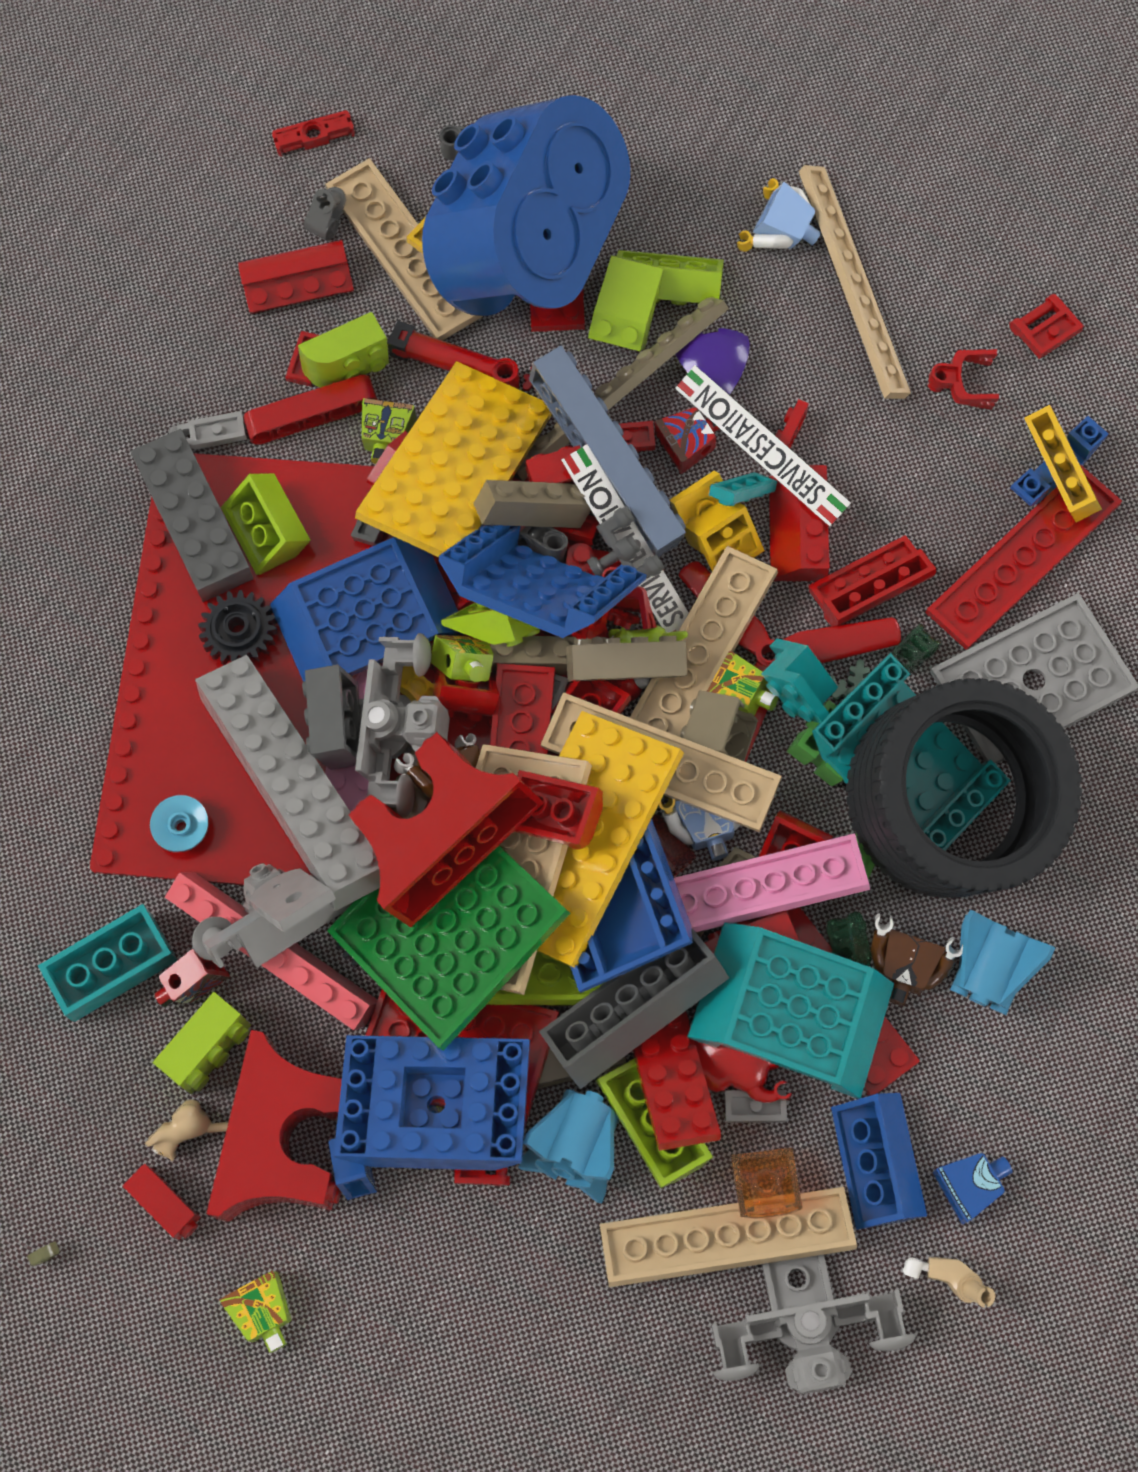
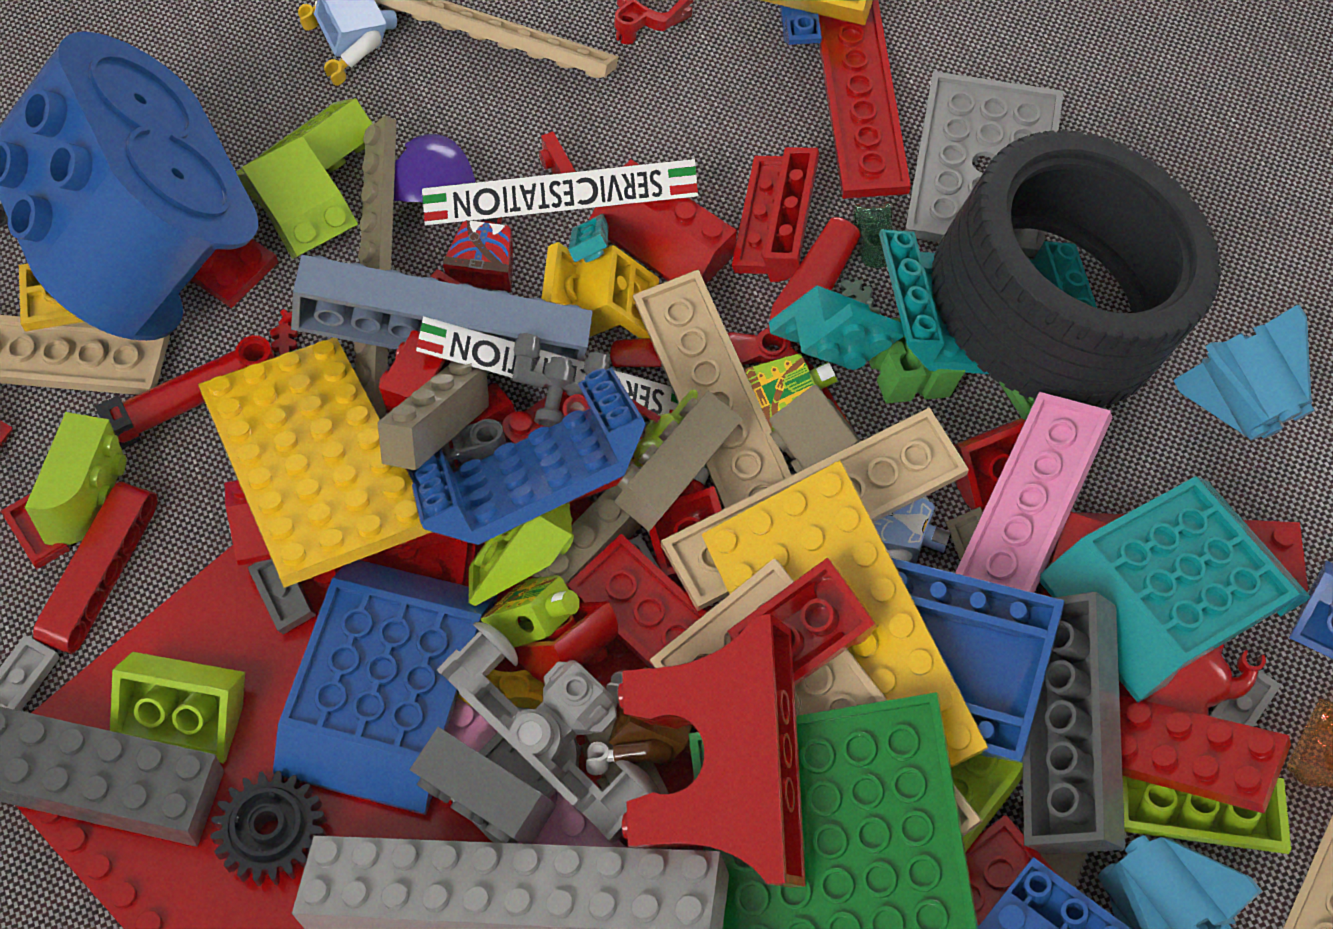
camera: 55 degrees left, 10 degrees down
(383, 423) = (192, 509): torso -> none
(849, 938) = (1127, 489): clear green piece -> none
(910, 961) = (1194, 449): reddish brown torso -> none

